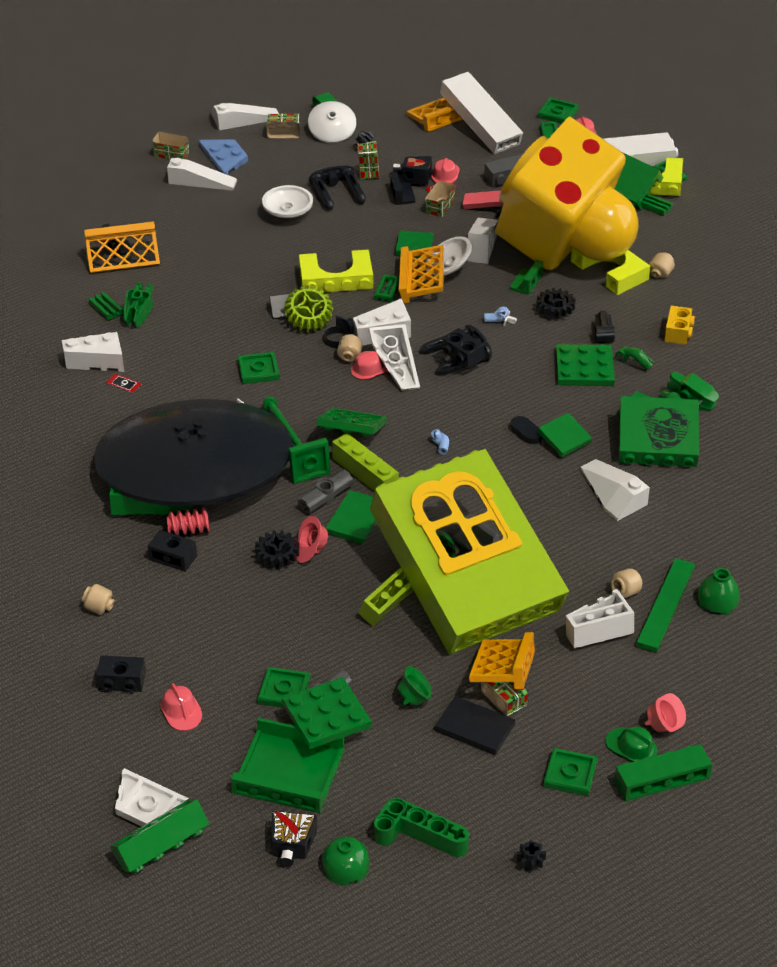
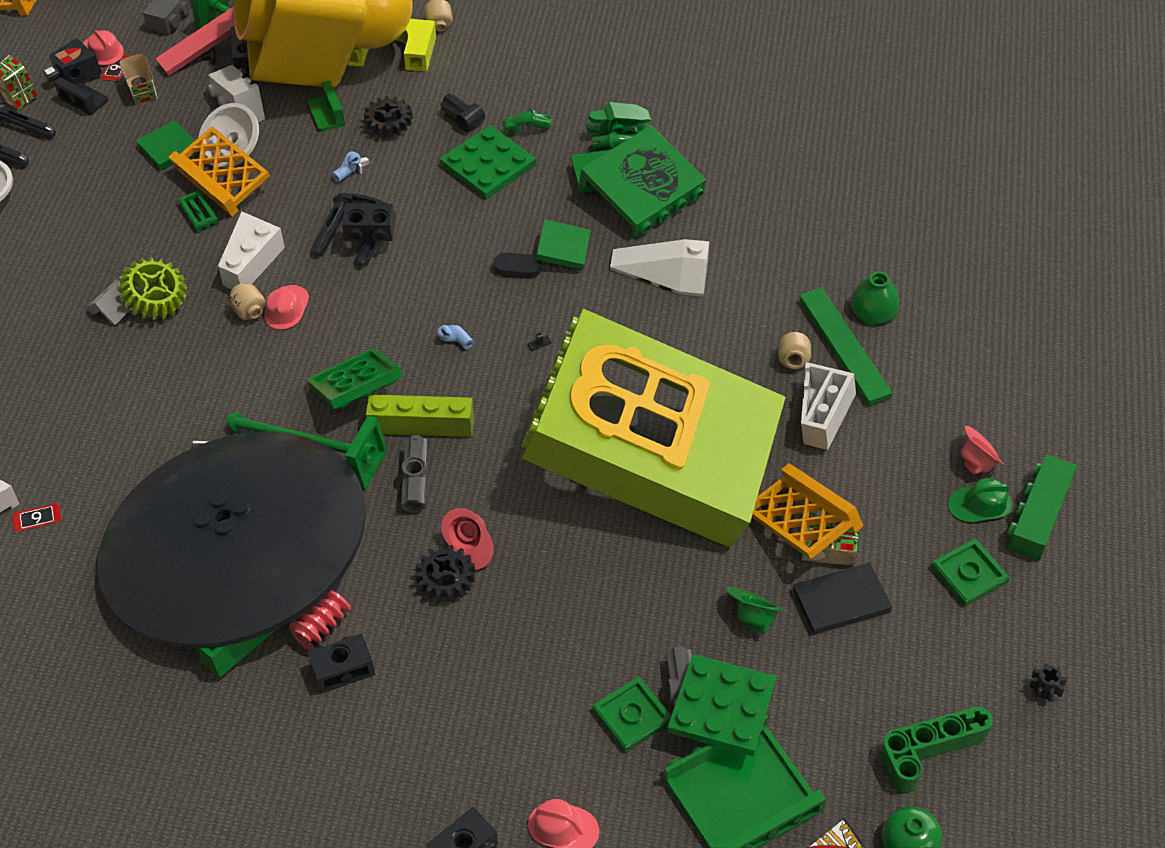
camera: 45 degrees left, 10 degrees up
(98, 599) = (332, 784): tan head -> none
(258, 368) = (170, 391): green tile -> none
(342, 326) = (211, 281): black piece -> none
(353, 518) = (473, 476): green tile -> none
(356, 278) = (115, 252): neon yellow arch -> none
(385, 598) = (616, 536): lime brick -> none
(395, 352) = (302, 272): white wedge -> none
(679, 325) = (525, 64): yellow brick -> none

